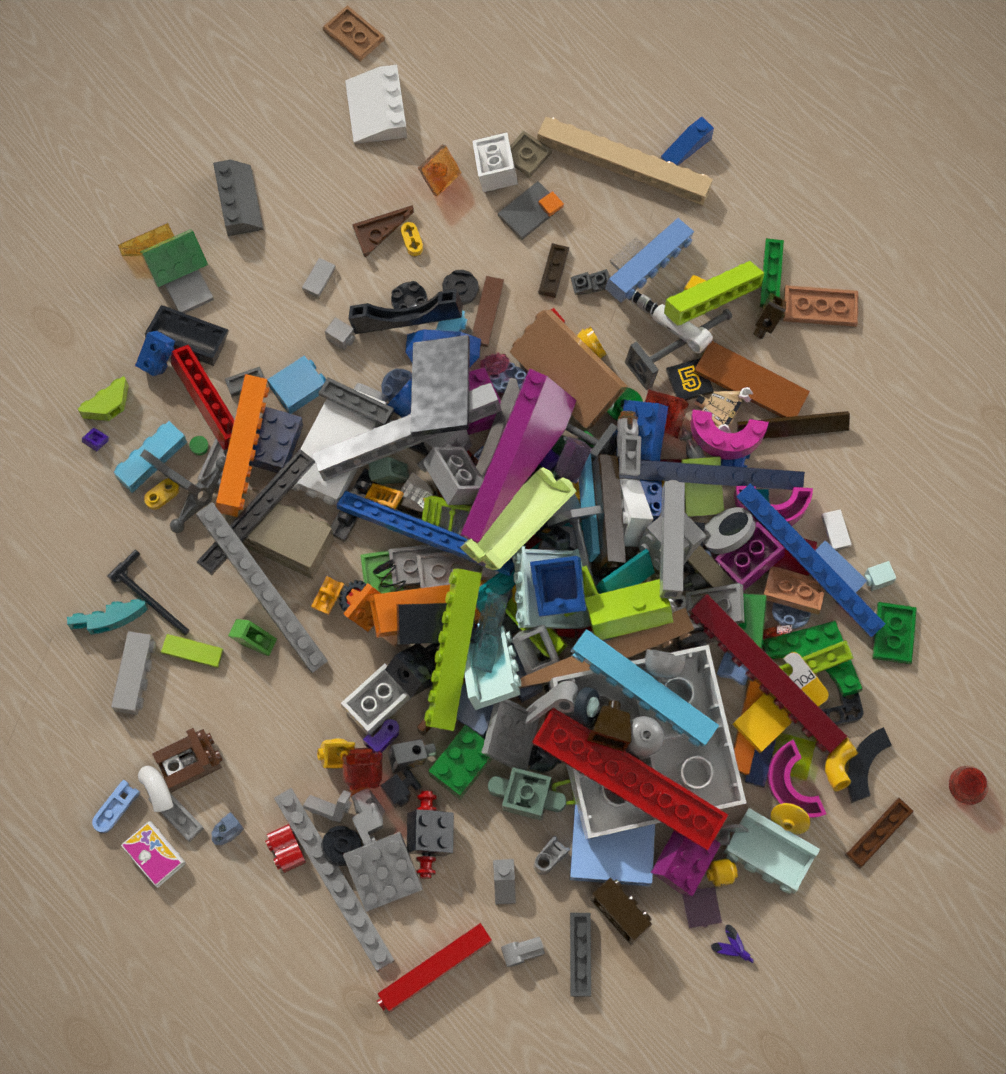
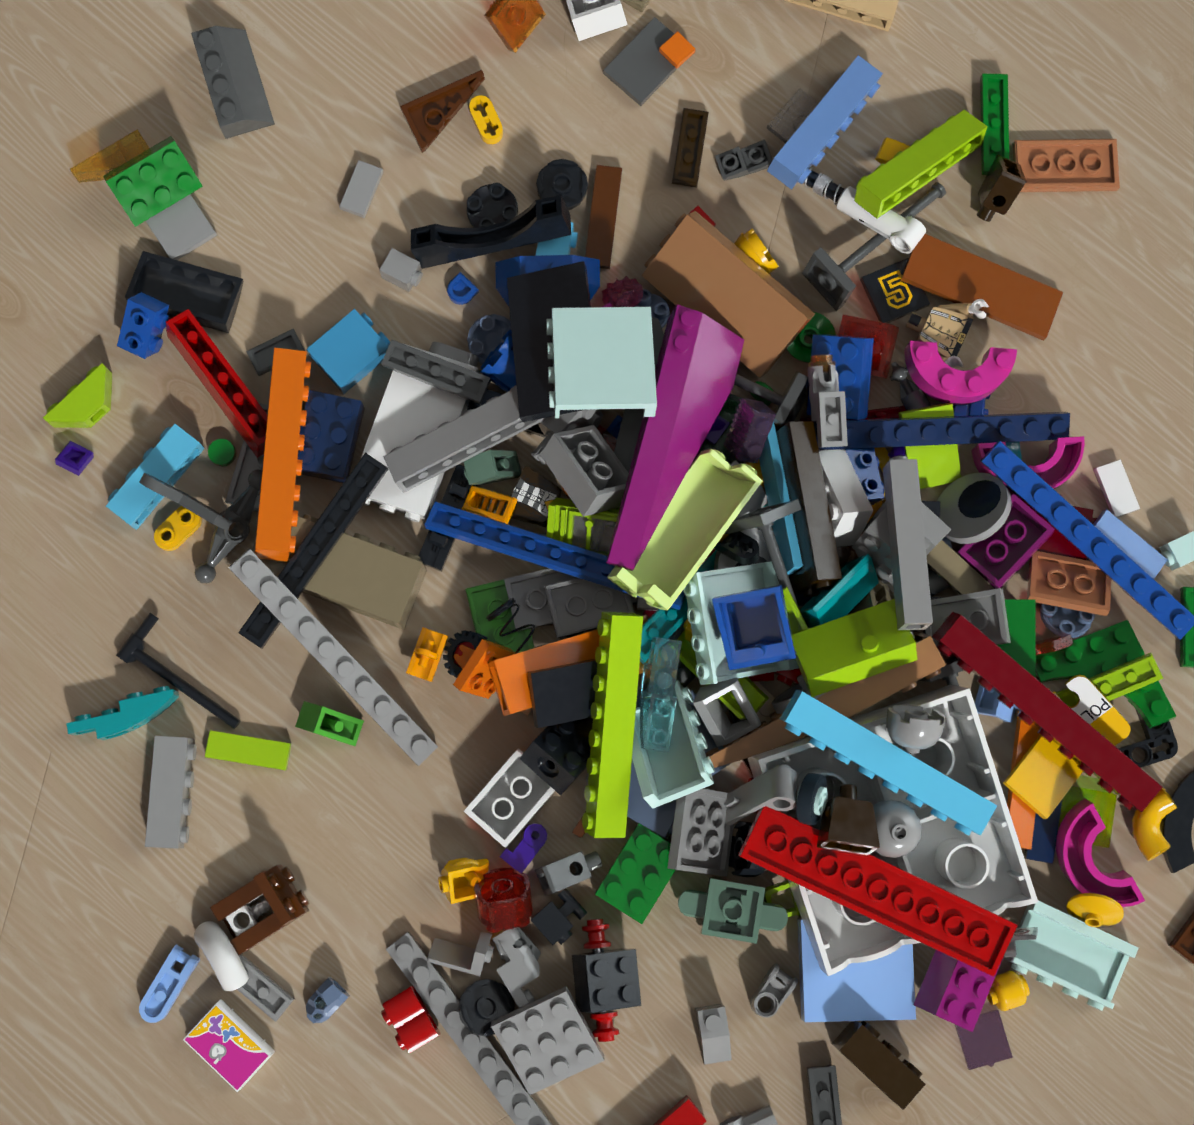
camera: 10 degrees left, 10 degrees up
(381, 351) = (461, 290): none -> blue tile
(471, 397) = (602, 359): none -> light aqua panel
(735, 949) = (1033, 1092): dark purple piece -> none
(804, 424) = (1055, 342): dark brown tile -> none

